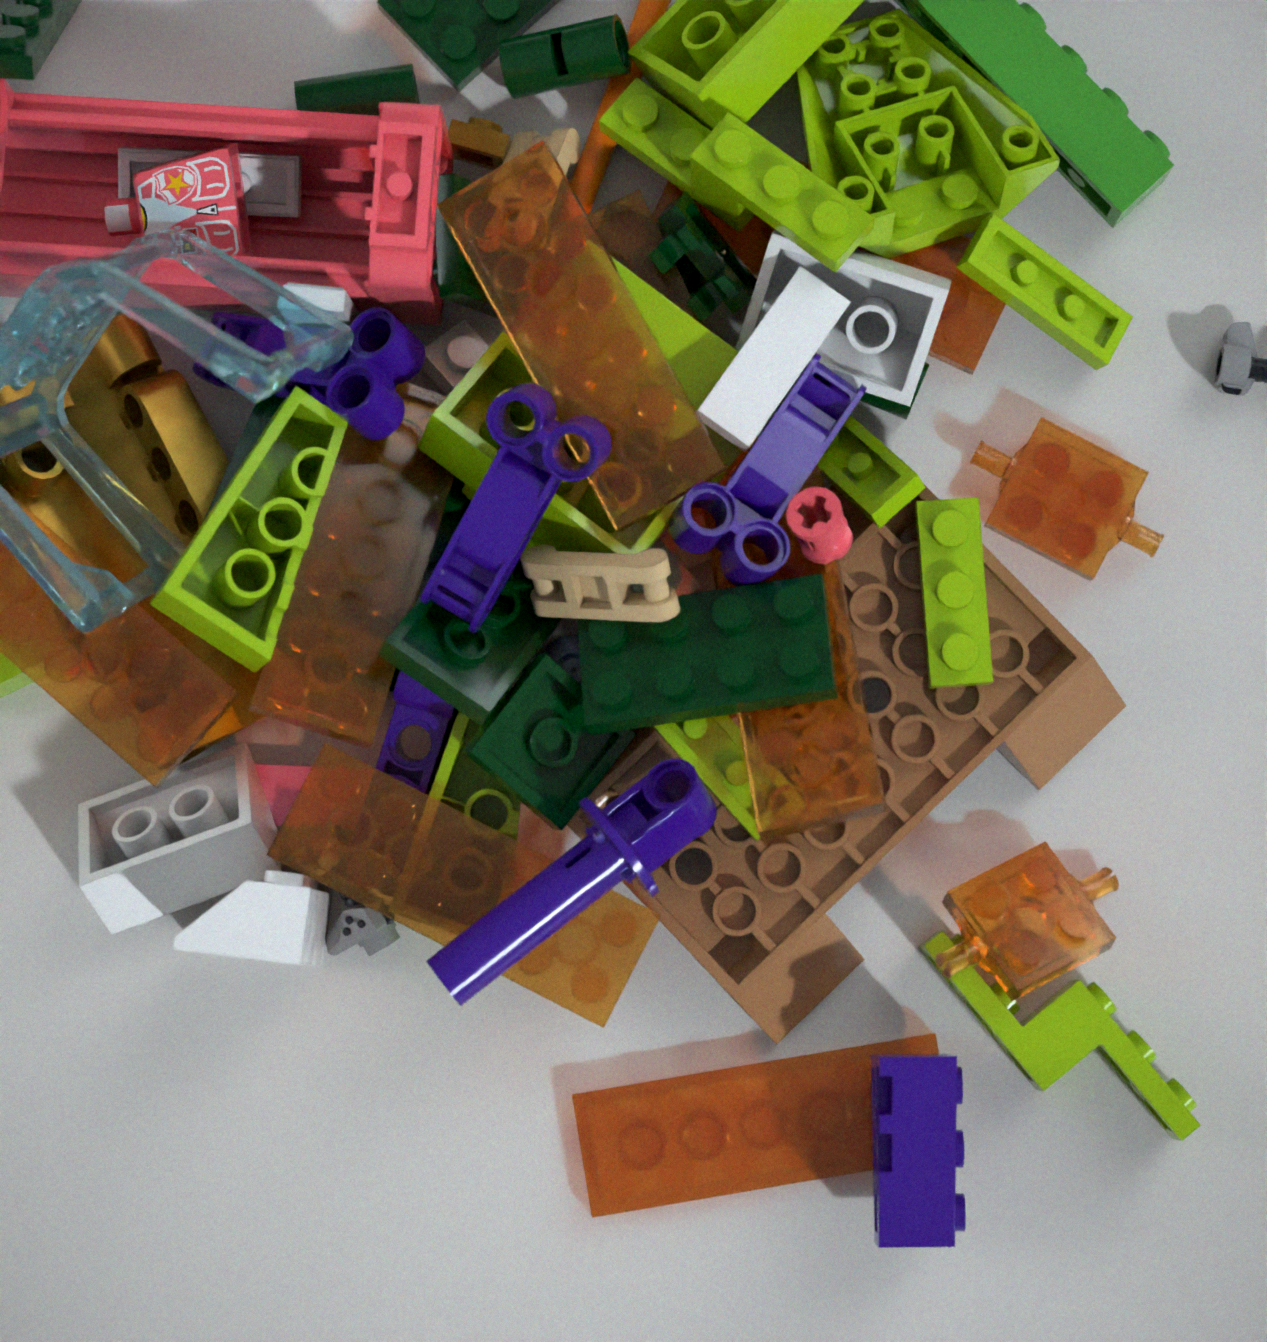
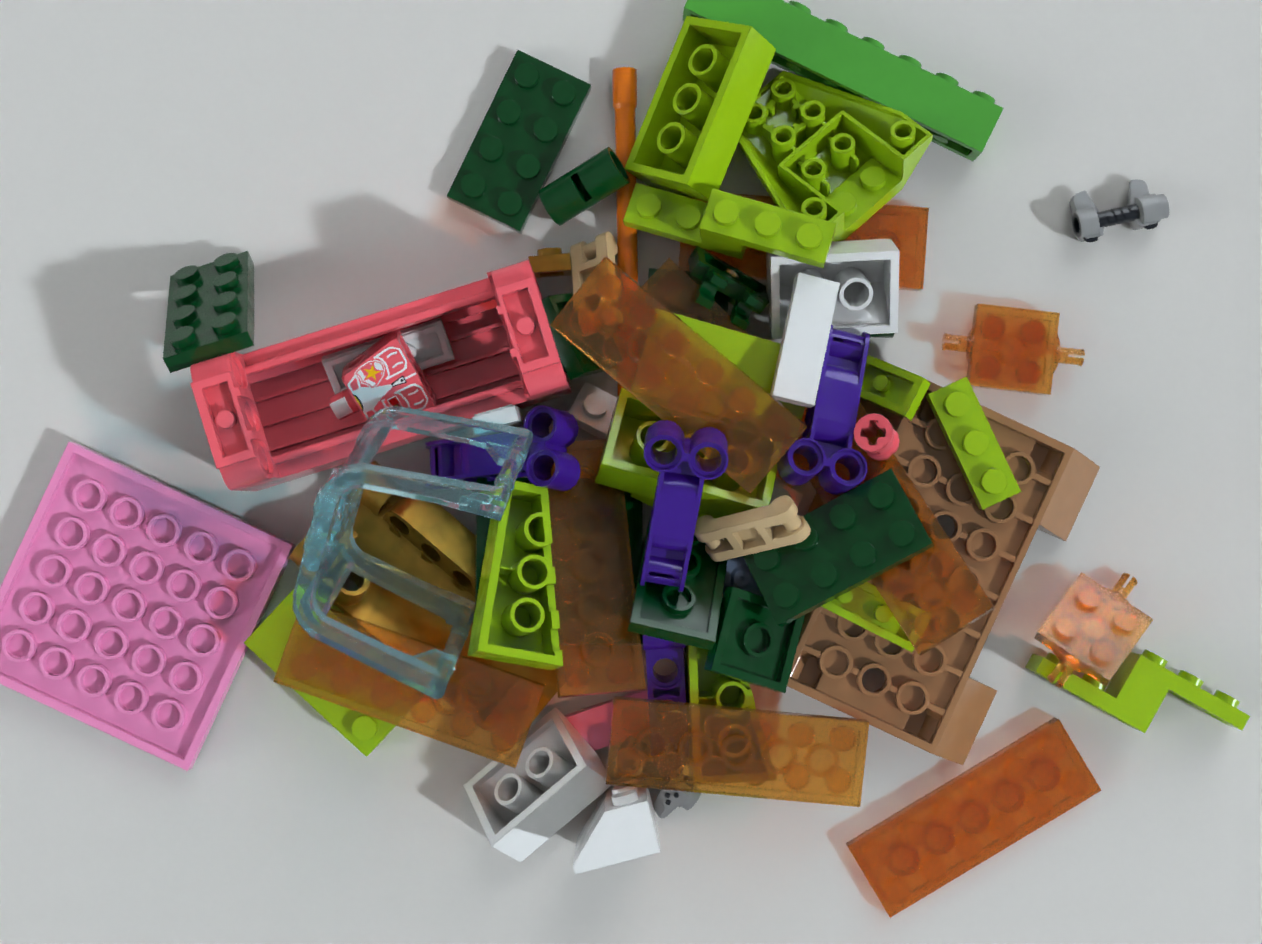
camera: 30 degrees left, 5 degrees up
(357, 91) = (461, 264): dark green pin -> none
(623, 843) = (830, 691): dark purple piece -> none
(916, 1150) = (1080, 801): dark purple wedge -> none
(1044, 291) = (950, 222): lime plate -> none

